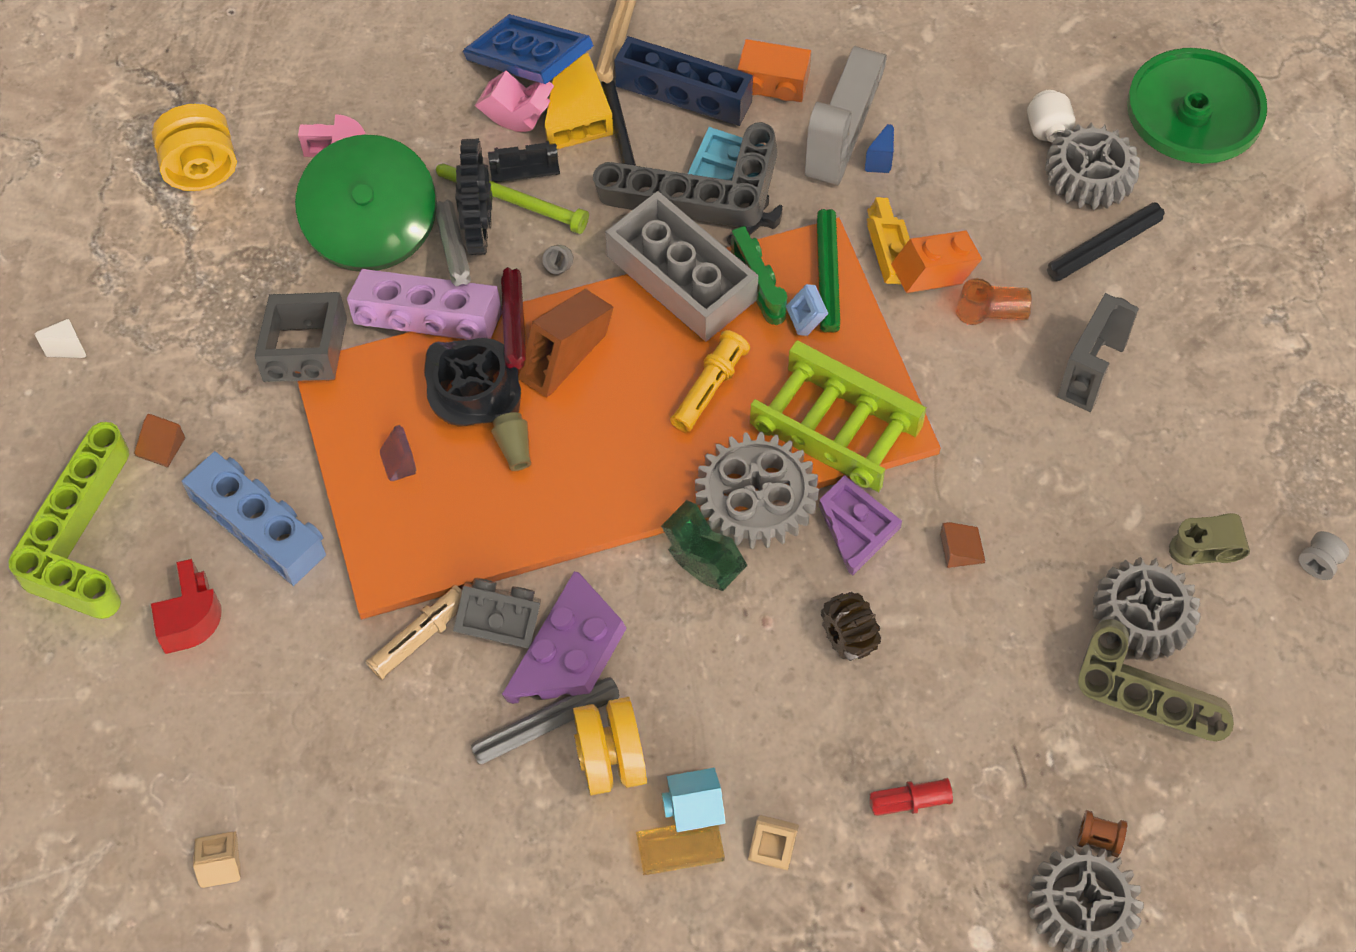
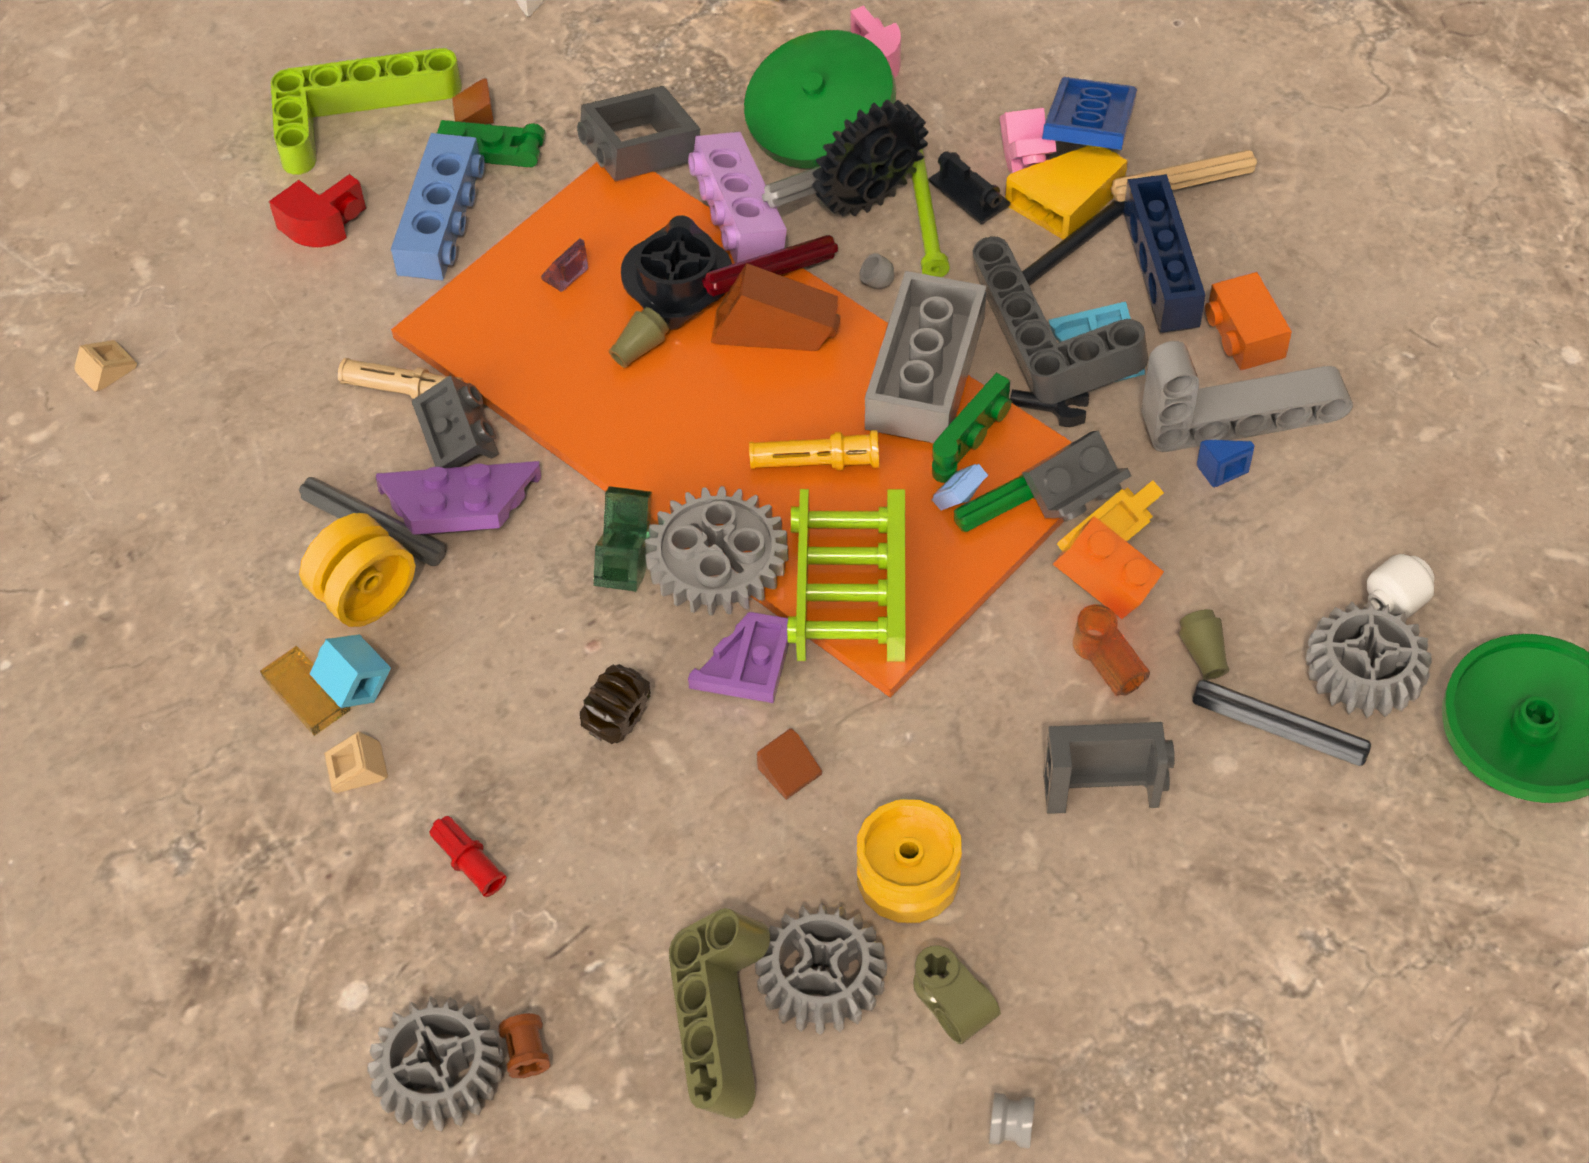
camera: 60 degrees right, 5 degrees down
(206, 442) = (499, 142): none -> green plate
(850, 237) = (1075, 477): none -> dark grey bracket
(1021, 245) = (1205, 641): none -> olive cone
(1098, 507) = (908, 861): none -> yellow wheel

